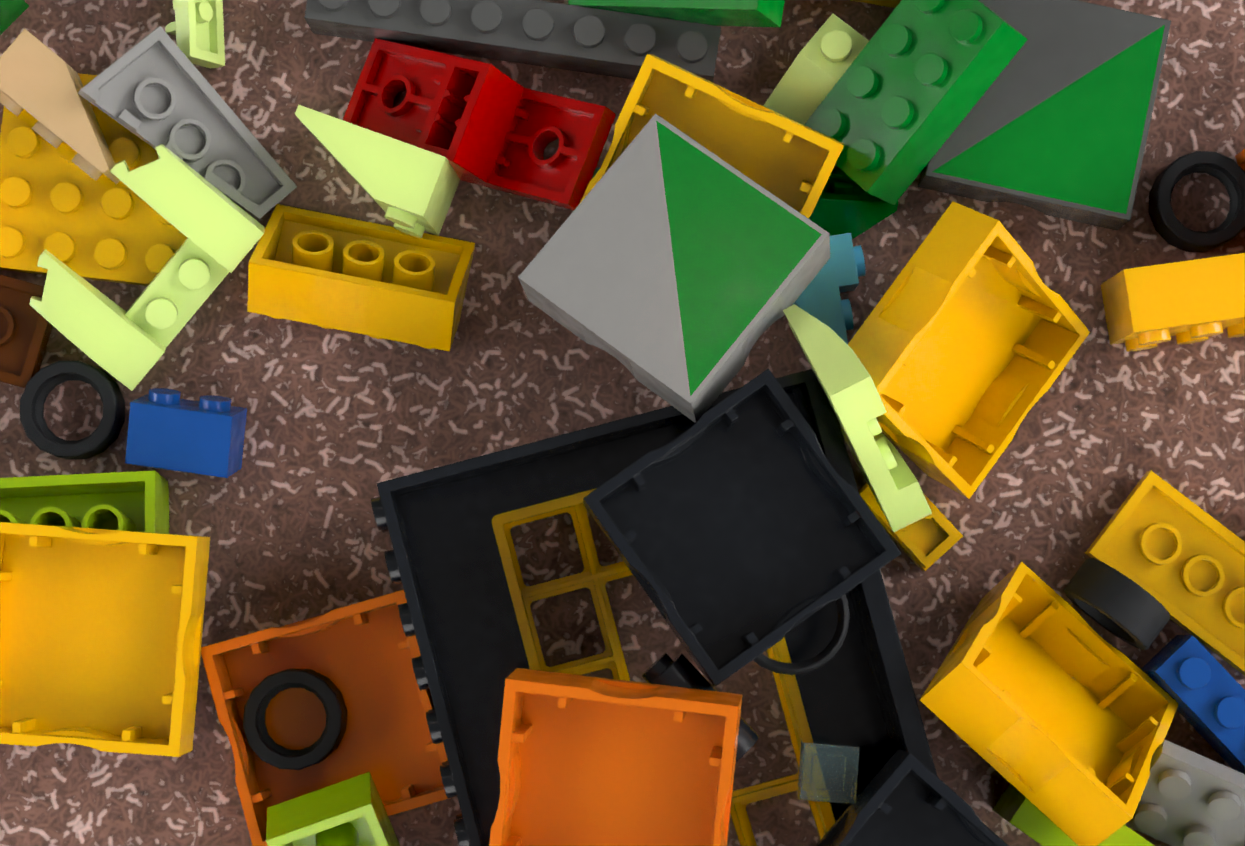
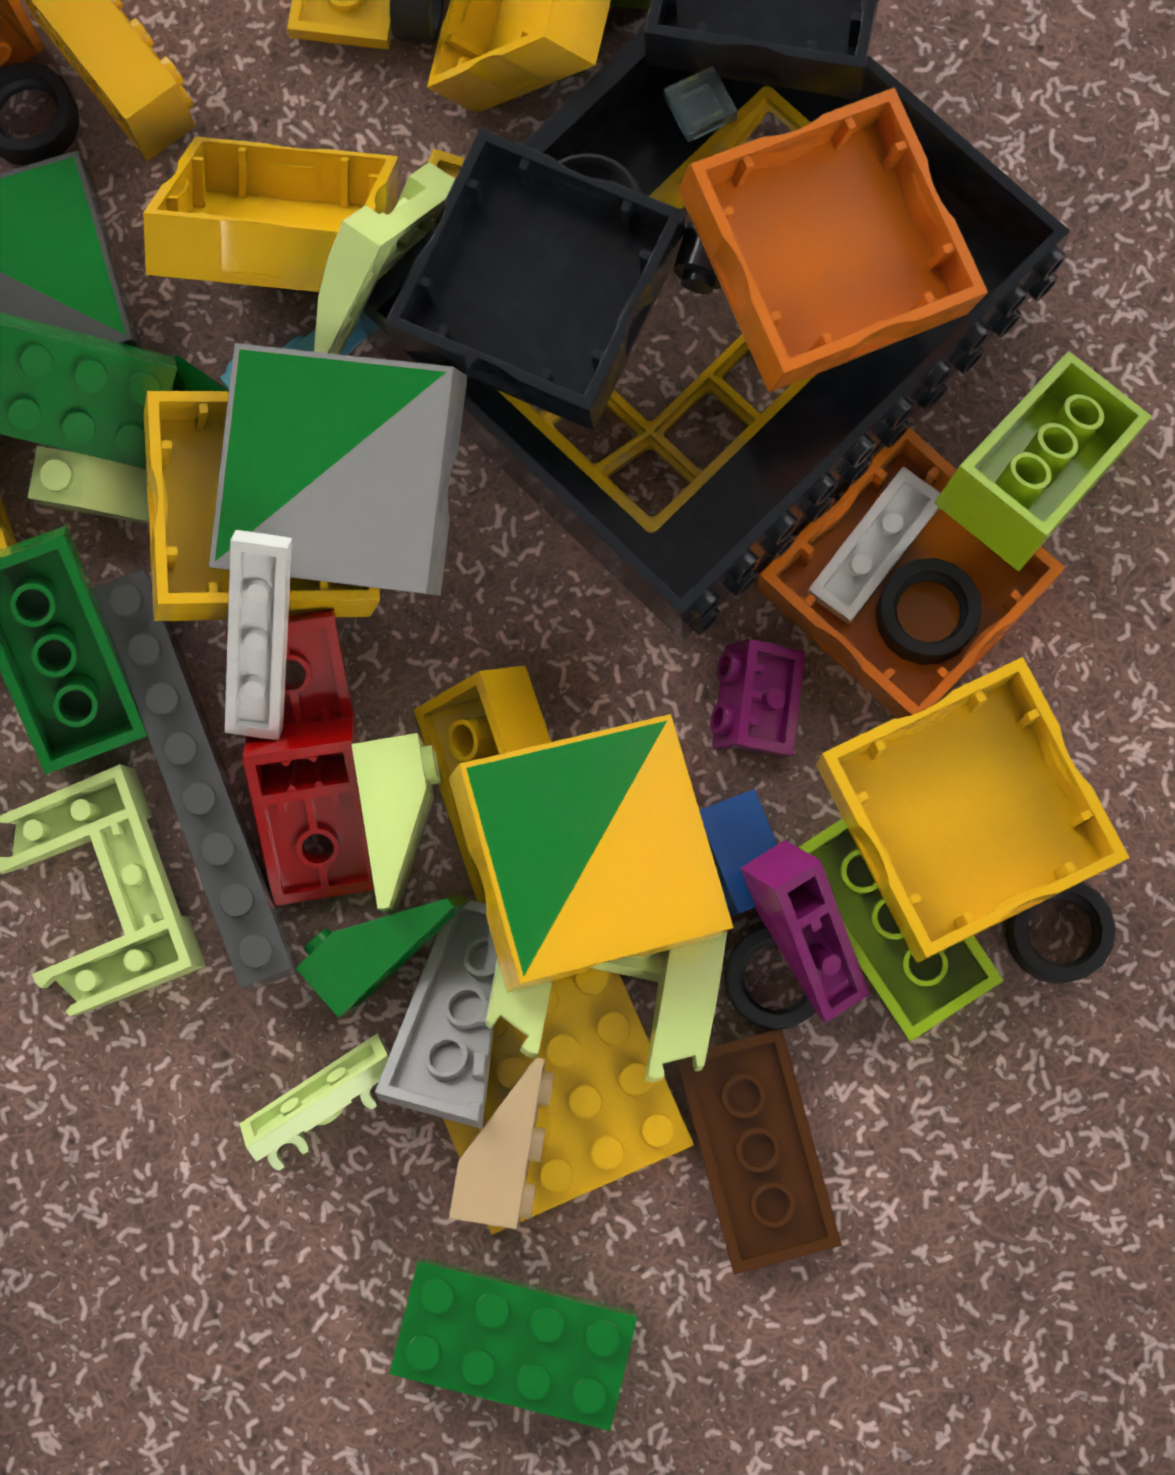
camera: 115 degrees left, 5 degrees down
(83, 448) = (807, 927): none -> magenta slope
(240, 303) = (589, 851): none -> tile
(285, 74) = (359, 959): none -> green slope
(310, 531) = (758, 698): none -> magenta bracket
(379, 709) = (875, 546): none -> white plate
(578, 125) = (257, 634): none -> white plate

